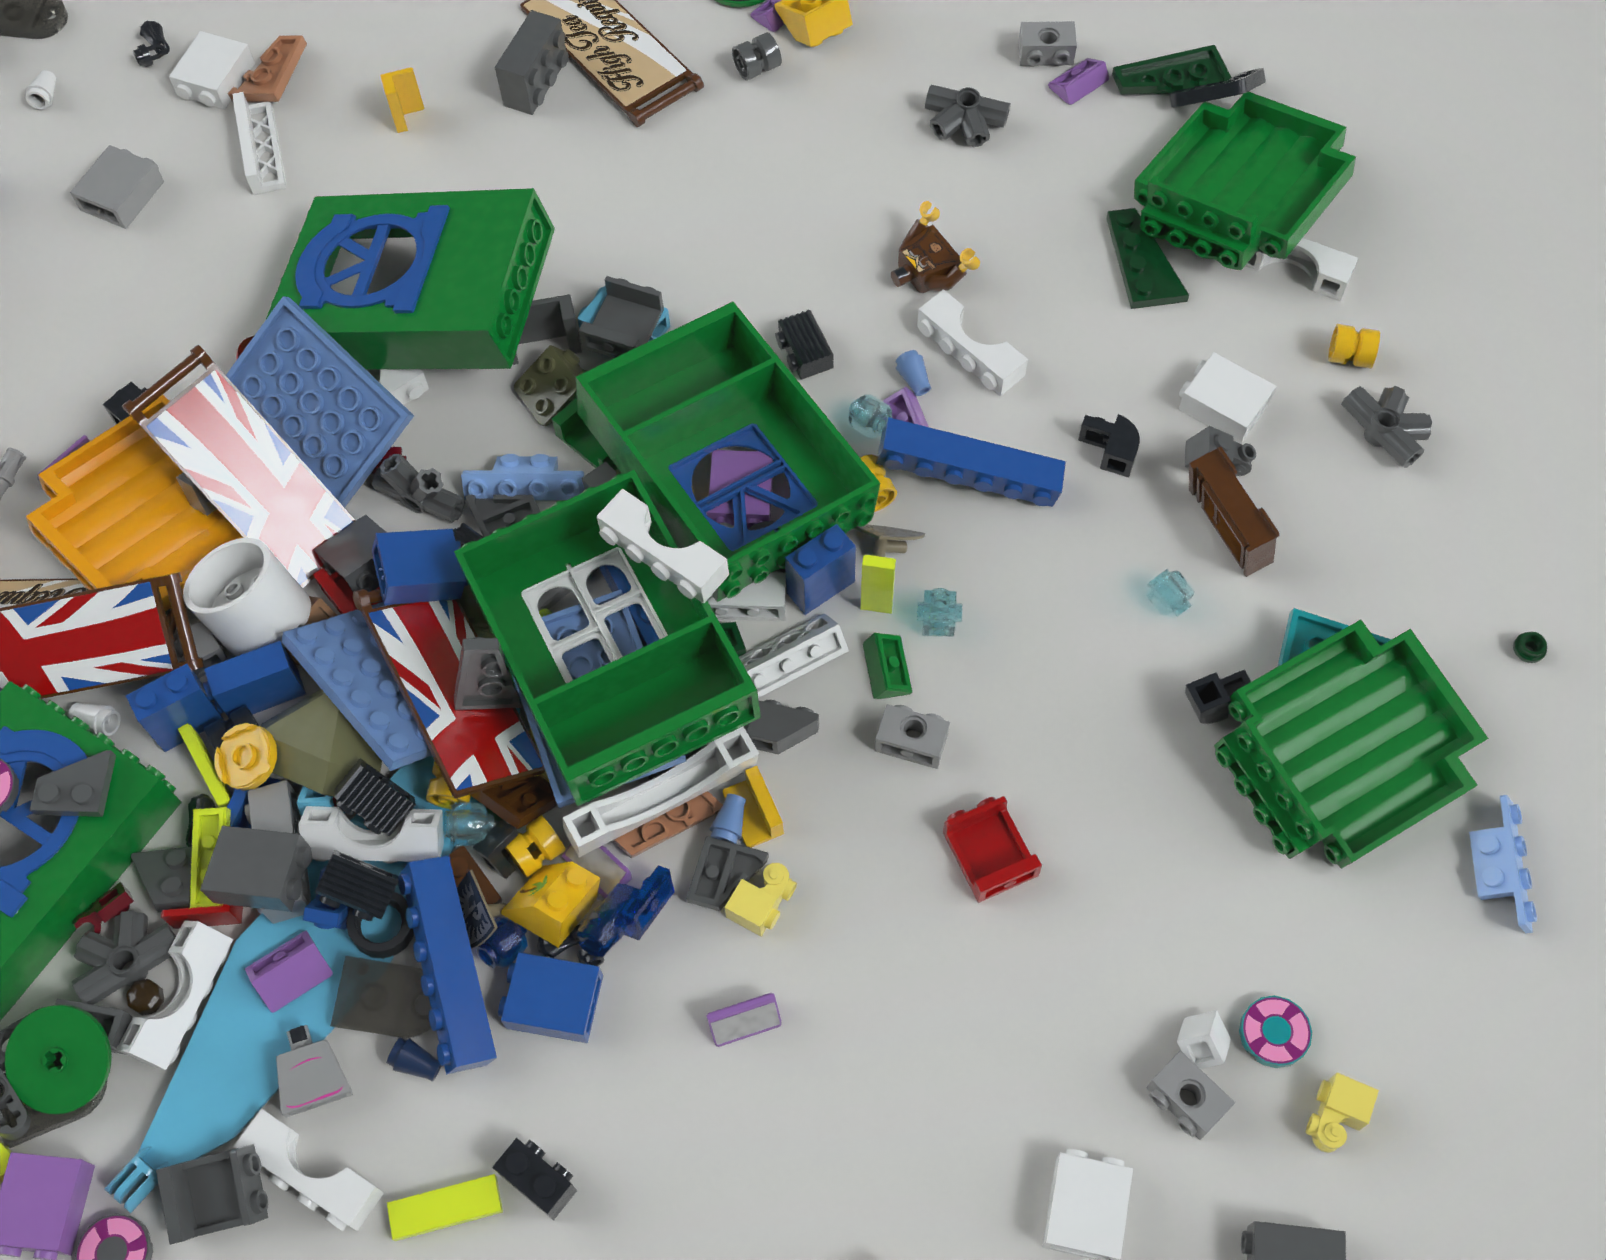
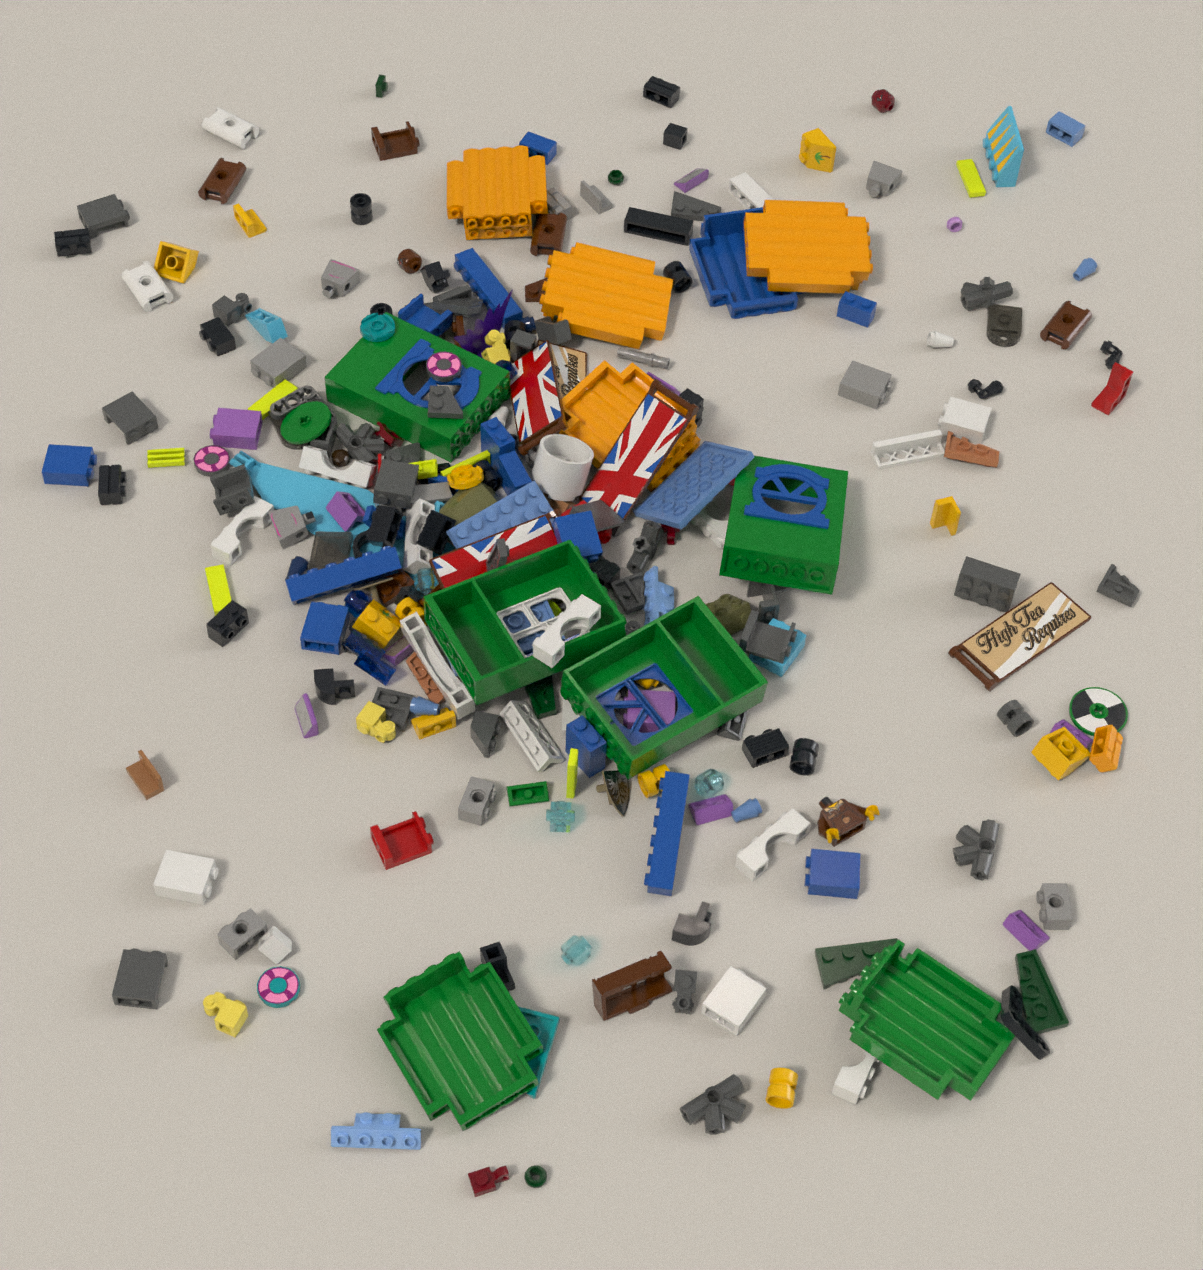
camera: 85 degrees right, 10 degrees down
(684, 987) = (328, 689): none -> black brick
(823, 296) = (804, 756): none -> black wheel
(1015, 273) = (833, 873): none -> blue brick
(1547, 714) = (484, 1180): none -> dark red plate

